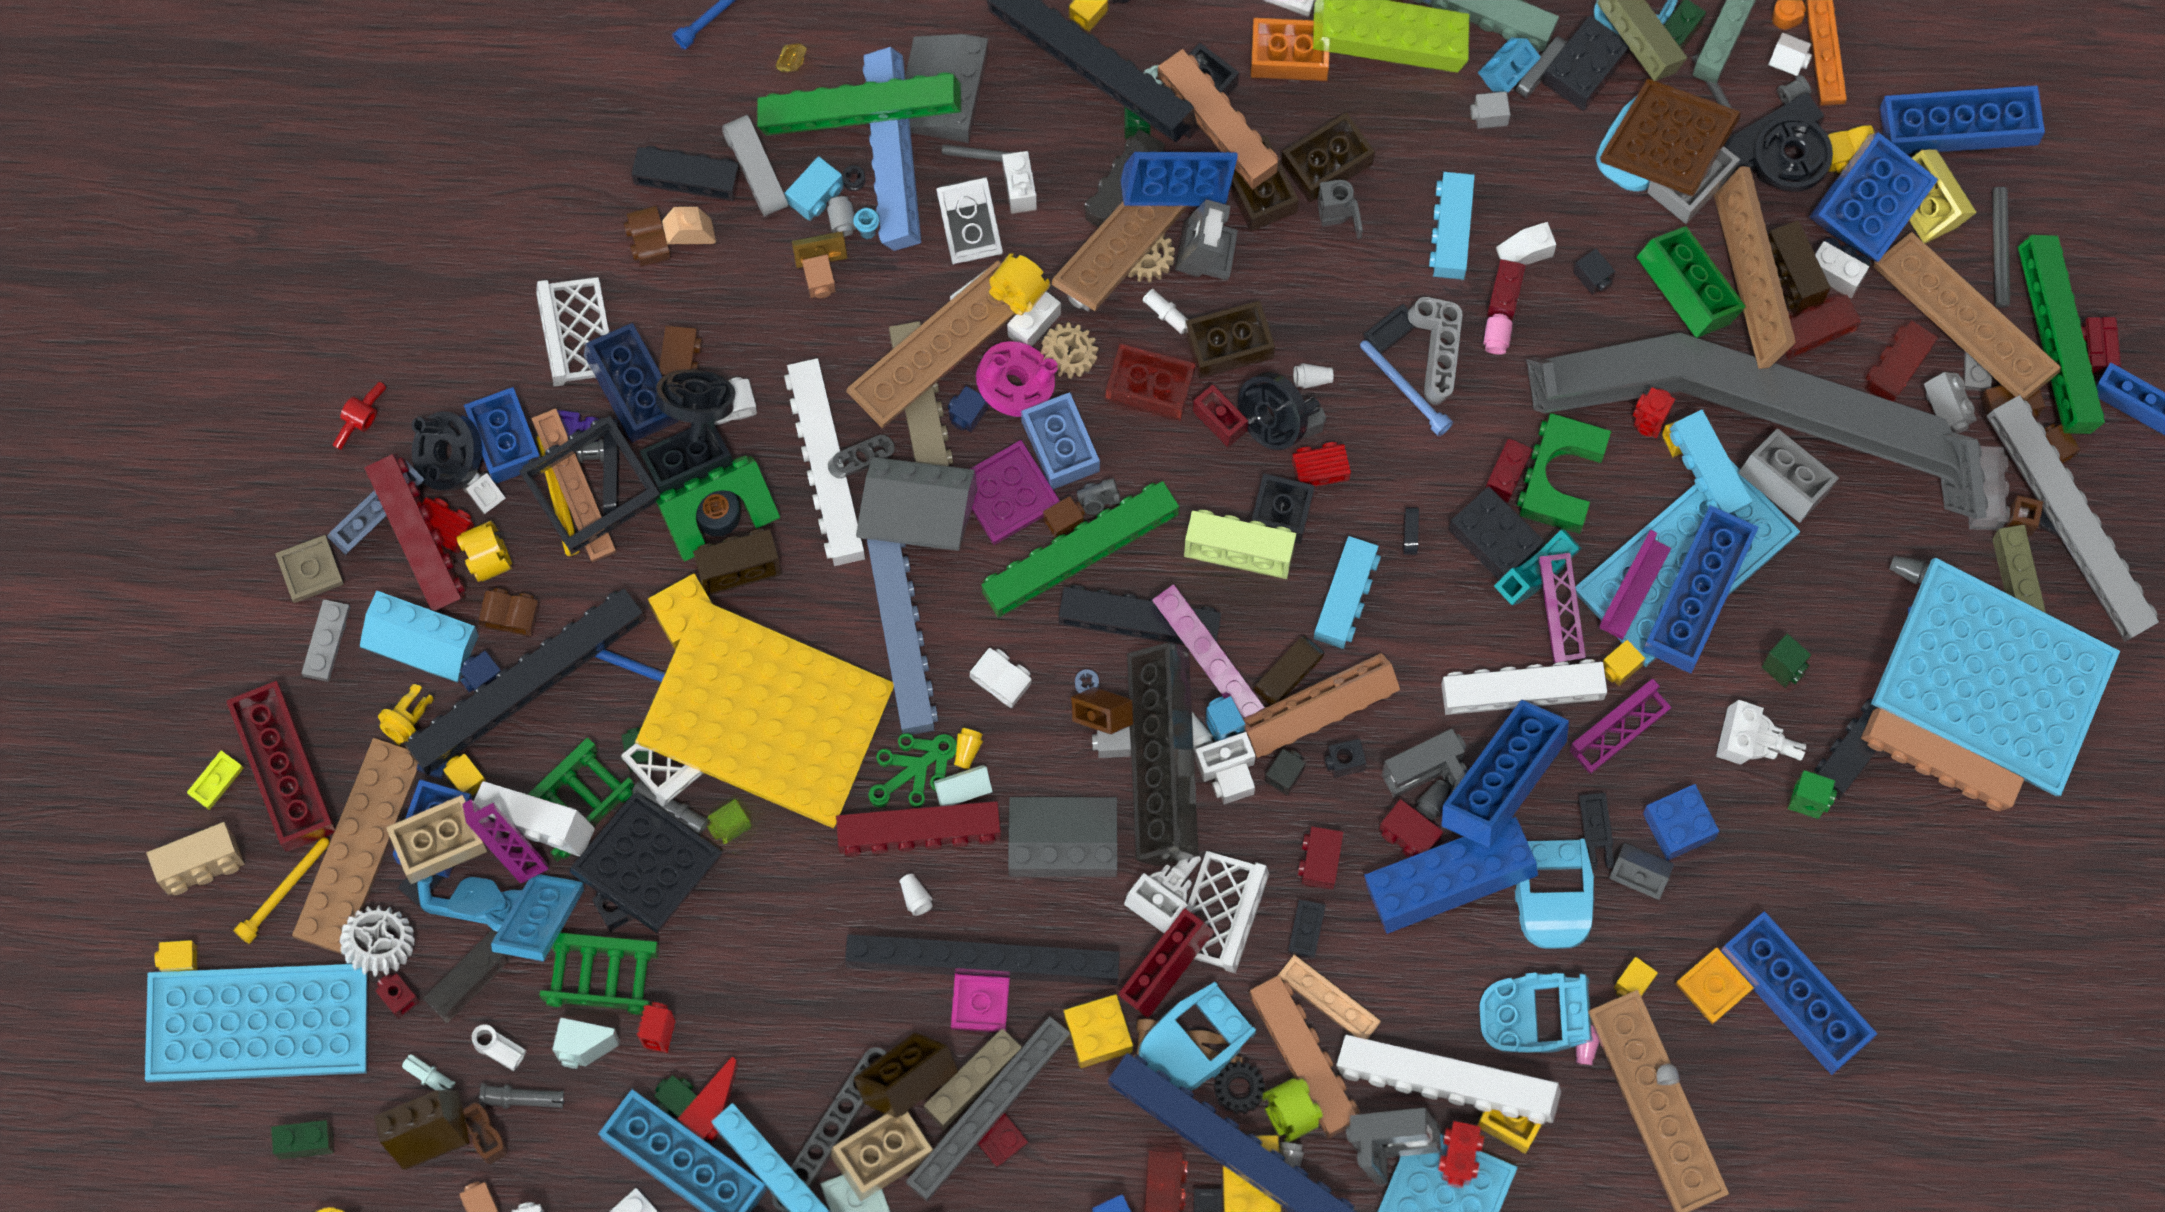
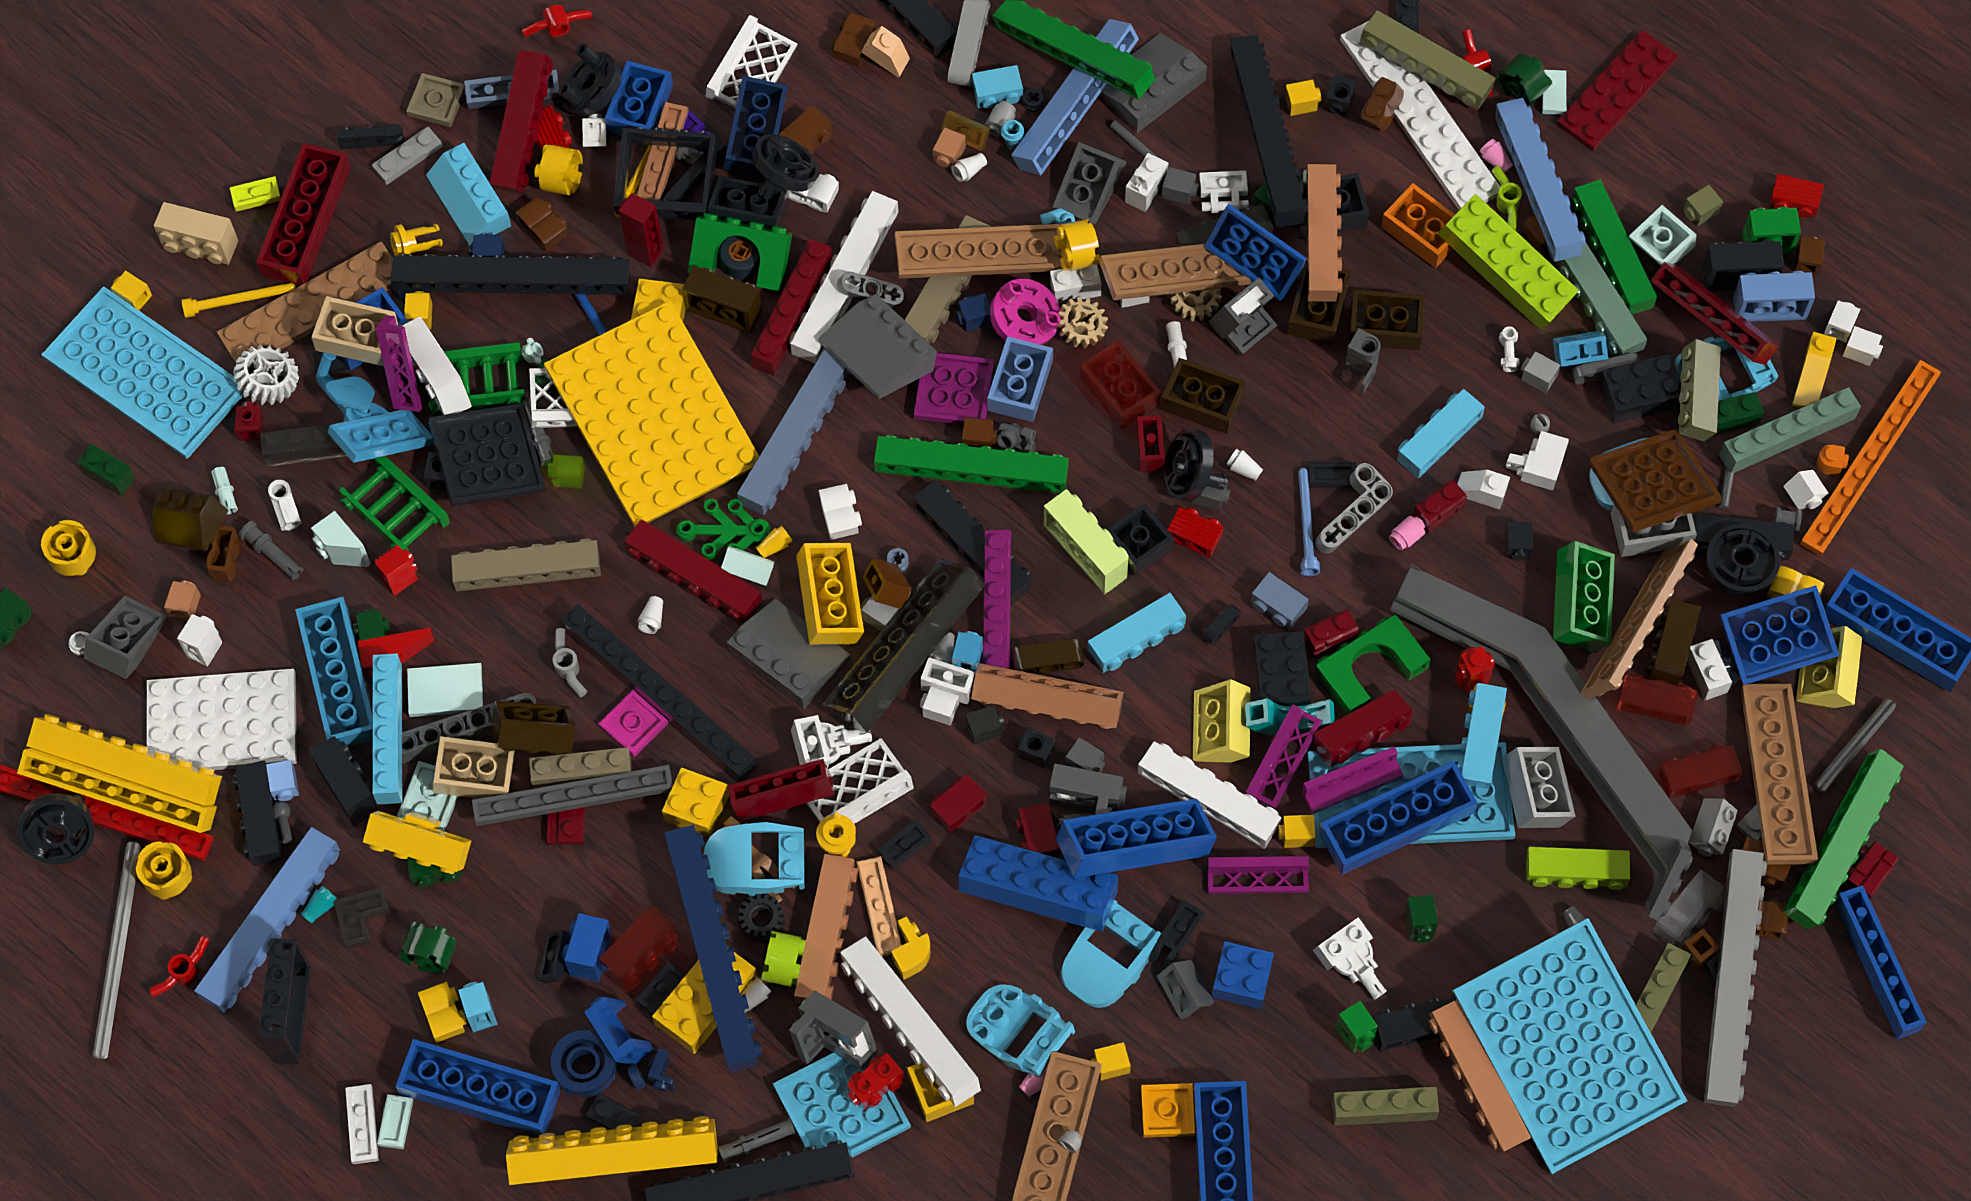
camera: 40 degrees right, 5 degrees down
(278, 648) = (370, 137): none -> black hinge
(602, 737) = (532, 351): none -> light aqua plate
(616, 553) = (641, 229): none -> dark red brick
(765, 935) = (526, 565): none -> dark tan brick
(788, 1102) = (444, 689): none -> light aqua tile
(803, 523) = (790, 307): none -> dark red brick
(849, 282) = (968, 167): none -> white cone
(867, 989) = (564, 654): none -> light grey piece
(967, 268) = (1058, 216): none -> medium azure arm
(1050, 164) = (1179, 186): none -> dark grey brick
(1059, 757) = (830, 593): none -> yellow brick
(1087, 135) = (1223, 185): none -> white plate
(1254, 953) = (830, 835): none -> yellow piece
(1395, 1012) = (915, 953): none -> yellow brick
(1396, 736) = (1085, 757): none -> dark grey brick
(1439, 101) = (1507, 339): none -> white bar
(1441, 474) = (1279, 601): none -> sand blue brick
(1481, 617) = (1221, 723): none -> light yellow slope
(1524, 159) = (1536, 425): none -> light grey hinge
(1560, 188) = (1543, 461): none -> white hinge
(1605, 534) = (1362, 728): none -> dark red brick
(1870, 520) = (1577, 867): none -> lime brick
(1885, 843) = (1385, 1106): none -> olive brick

